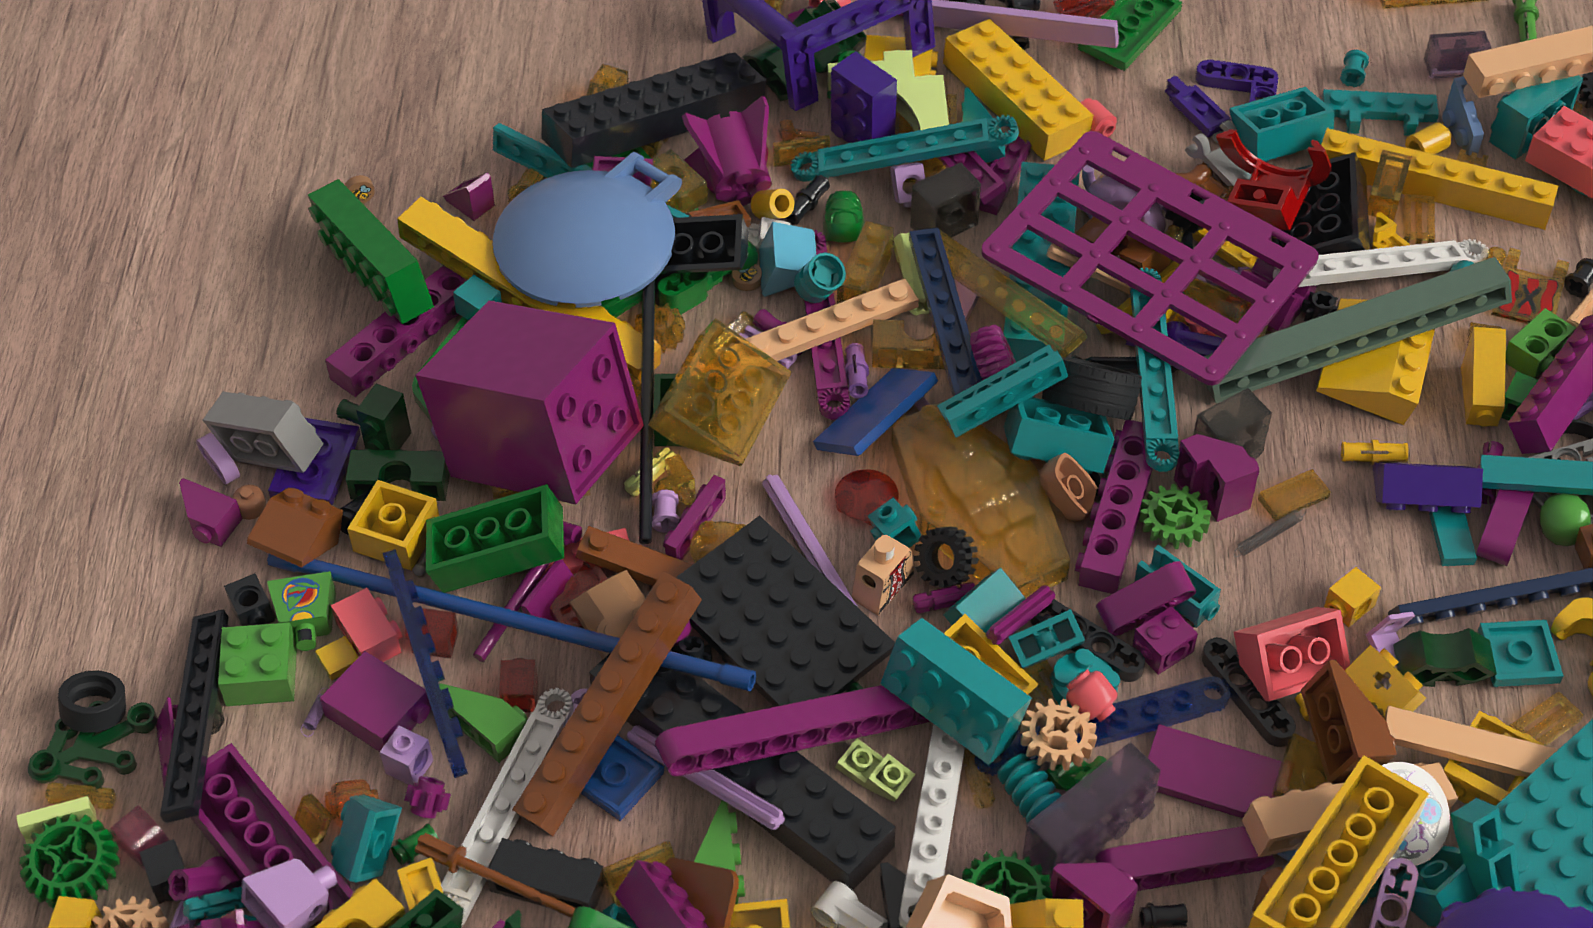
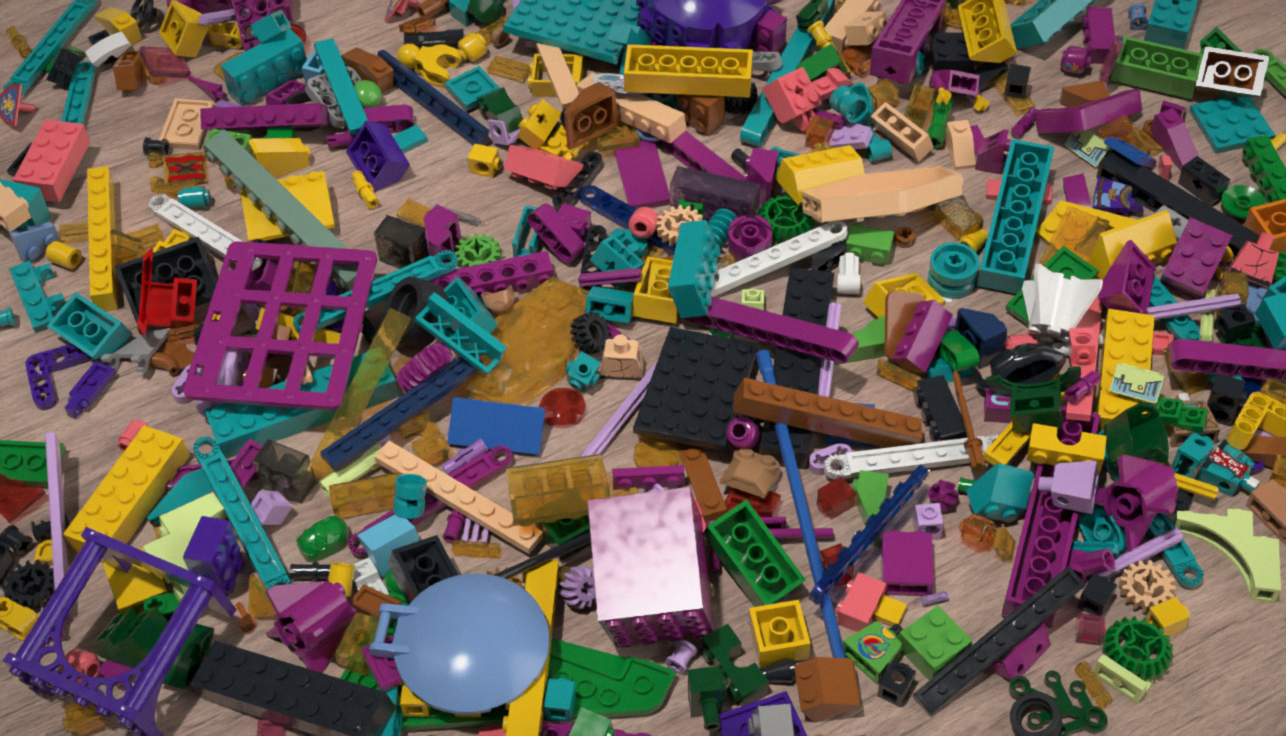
camera: 120 degrees left, 0 degrees up
(988, 819) = (749, 236): none -> magenta brick

